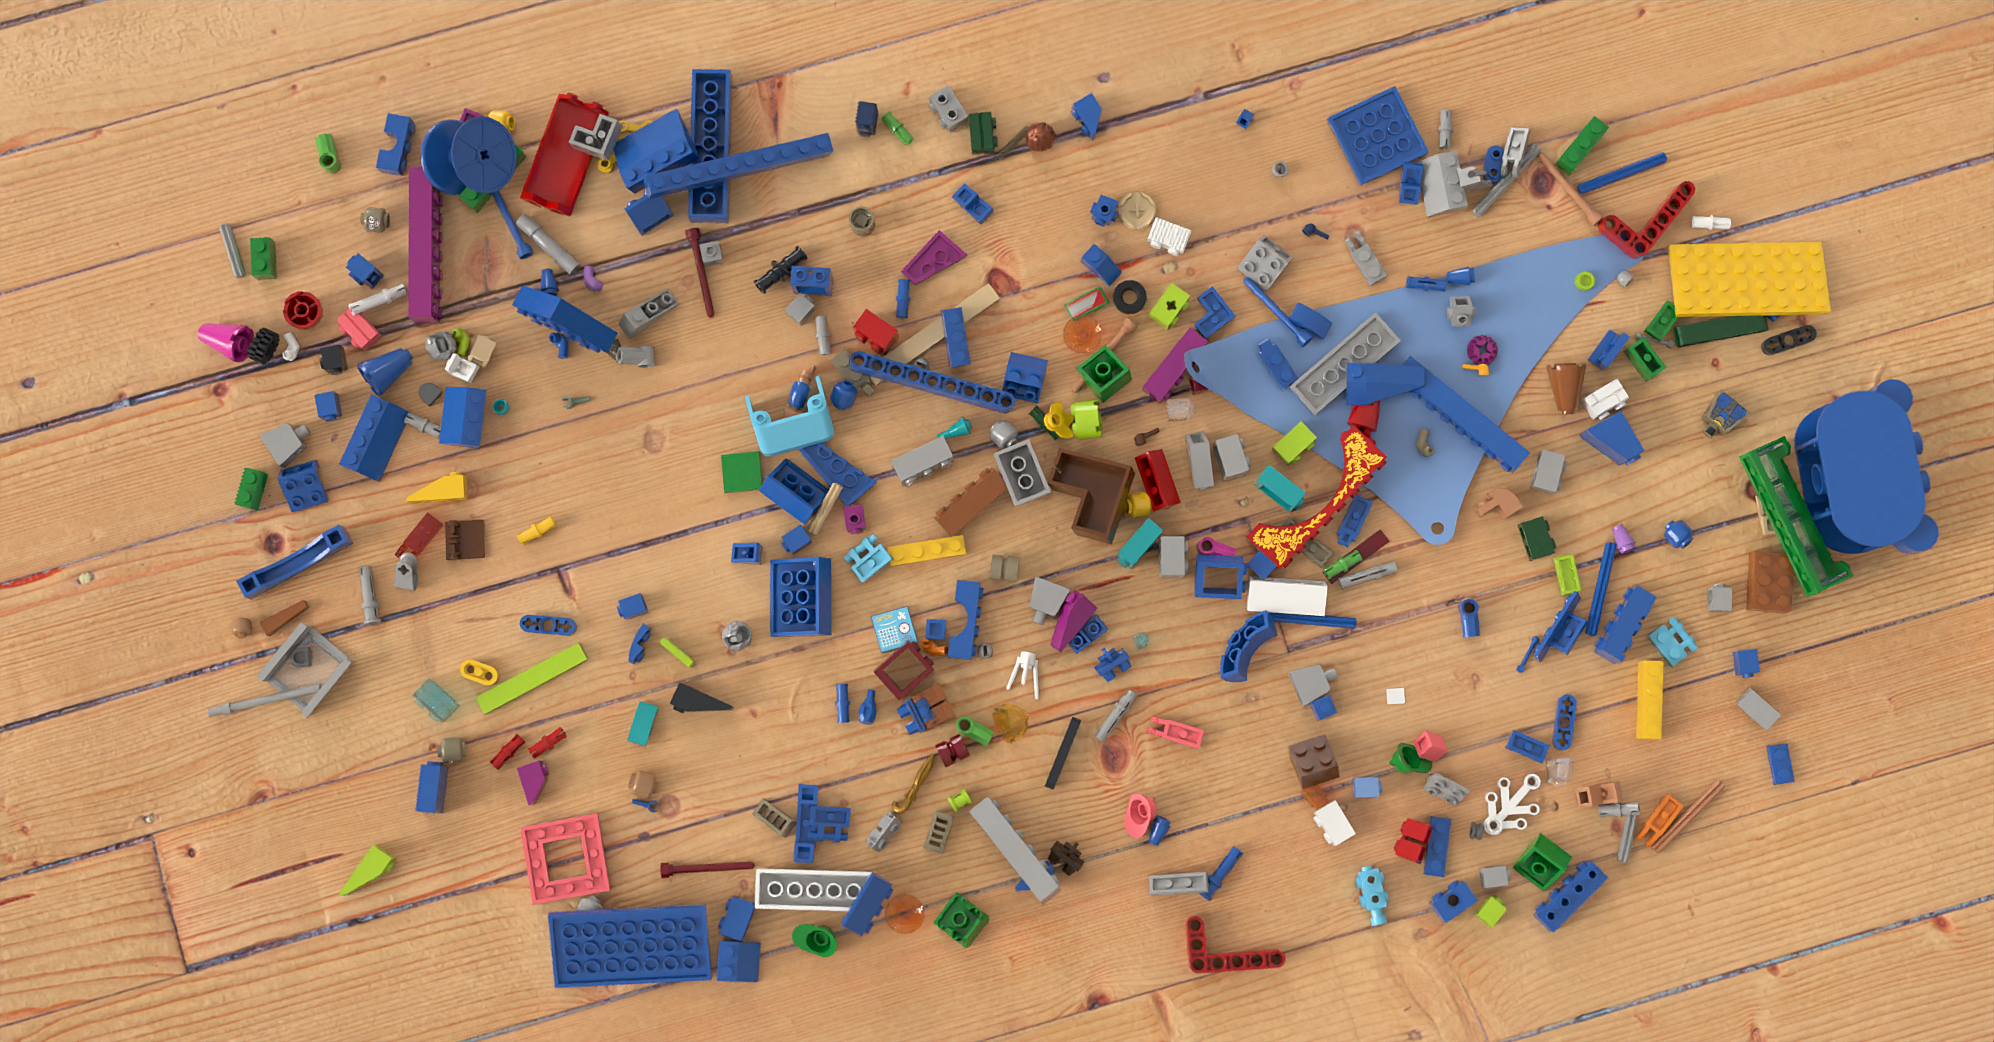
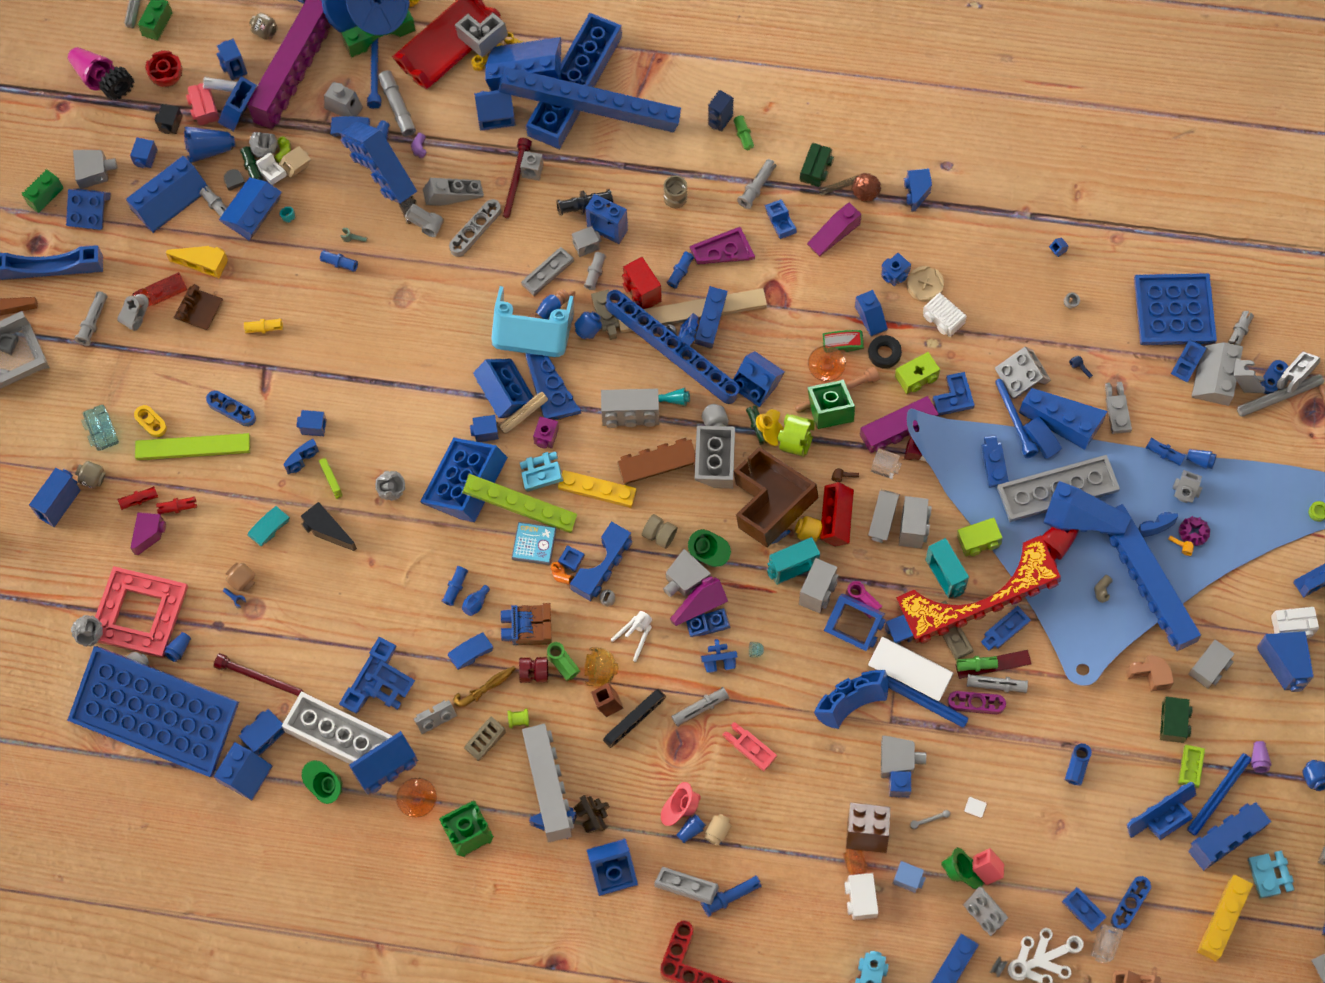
camera: 25 degrees right, 15 degrees down
(293, 347) = (141, 97): white arm -> none
(396, 317) = (237, 103): none -> blue brick
(439, 371) = (250, 163): none -> dark green pin
(495, 267) = (342, 100): none -> light grey torso
(508, 290) = (340, 123): none -> blue slope
(531, 901) = (87, 630): none -> light grey piece
(561, 342) = (366, 186): blue arm -> none
(574, 432) = (338, 260): none -> blue pin
(619, 875) = (177, 647): none -> blue cone
(685, 340) = (473, 226): none -> light grey beam
(741, 472) = (465, 353): green tile -> none
(747, 553) = (436, 422): blue slope -> none
(777, 354) = (547, 271): none -> light grey tile
(787, 827) = (350, 669): dark tan slope -> none
(865, 601) = (519, 503): none -> lime plate
(886, 758) = (470, 650): none -> blue slope
(889, 683) = (548, 580): dark red window -> none
(933, 185) = (753, 190): none -> light grey pin
(941, 361) = (688, 330): none -> blue hinge
(948, 109) = (796, 134): light grey brick -> none
(1029, 193) = (835, 229): none -> magenta slope
(1032, 749) = (607, 700): none -> copper brick
(1057, 565) = (709, 548): none -> green piece
(1106, 896) = (612, 867): none -> blue slope
(1182, 820) = (717, 829): none -> tan brick
(1322, 291) = (1064, 416): none -> blue wedge
(1349, 736) = (914, 824): none -> light grey hinge
(1368, 590) = (982, 696): none -> magenta beam
(1417, 831) = (935, 941): red piece -> none
(1450, 356) = (1162, 523): none -> blue slope
(1520, 668) = (1108, 834): blue hinge -> none
(1567, 385) = (1262, 592): dark orange cone -> none

